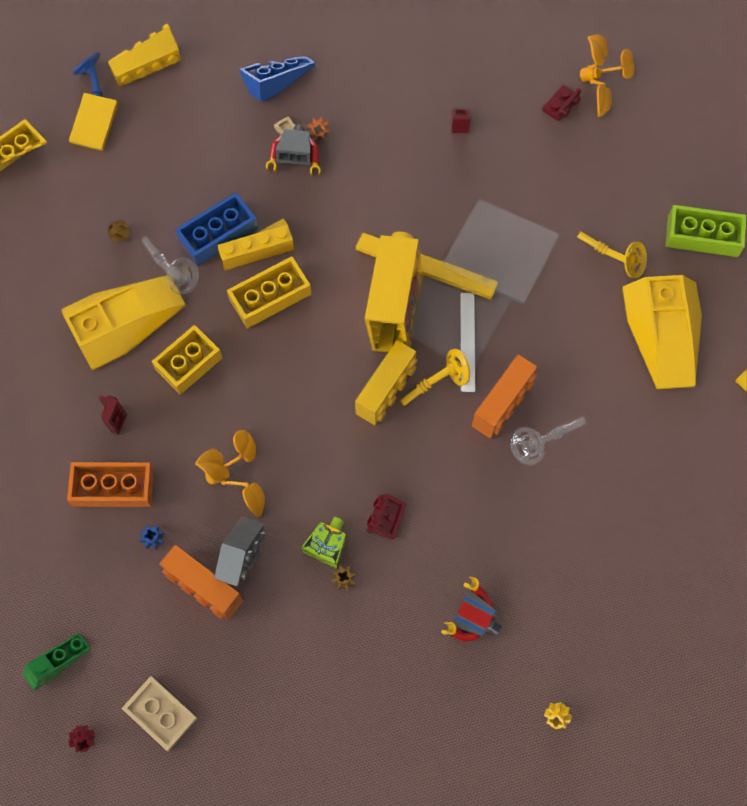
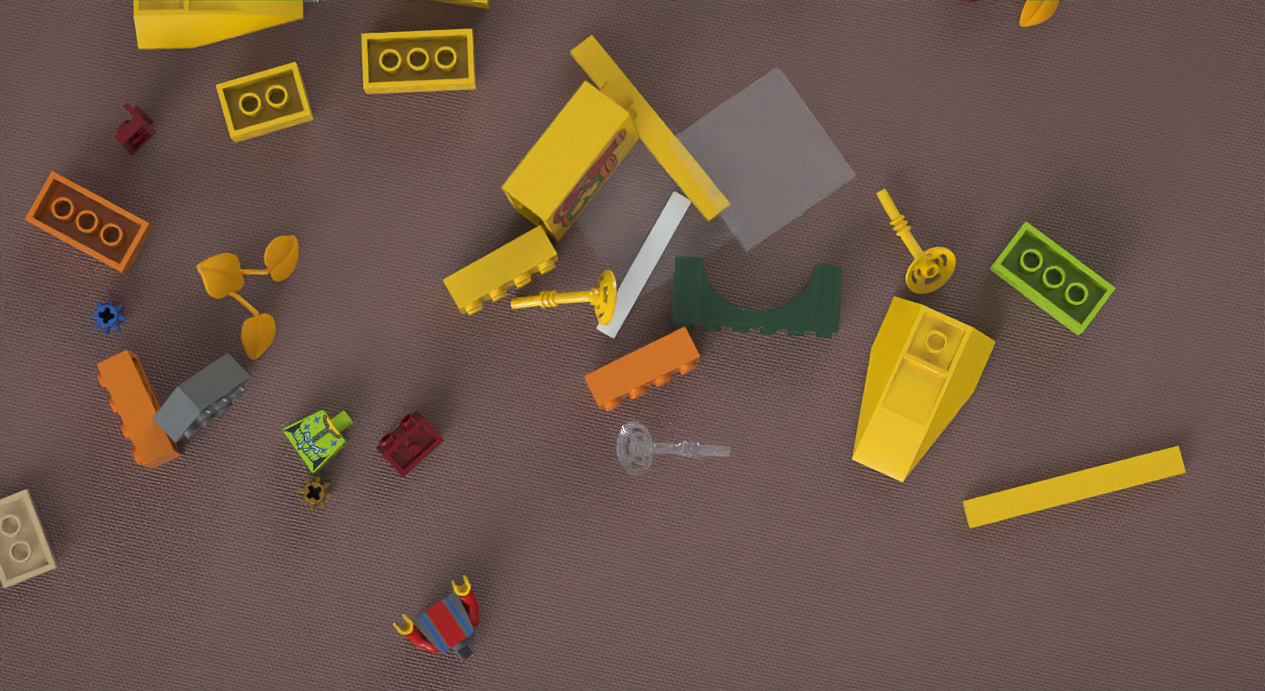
camera: 30 degrees right, 15 degrees up
(582, 316) = (811, 311): none -> clear green arch

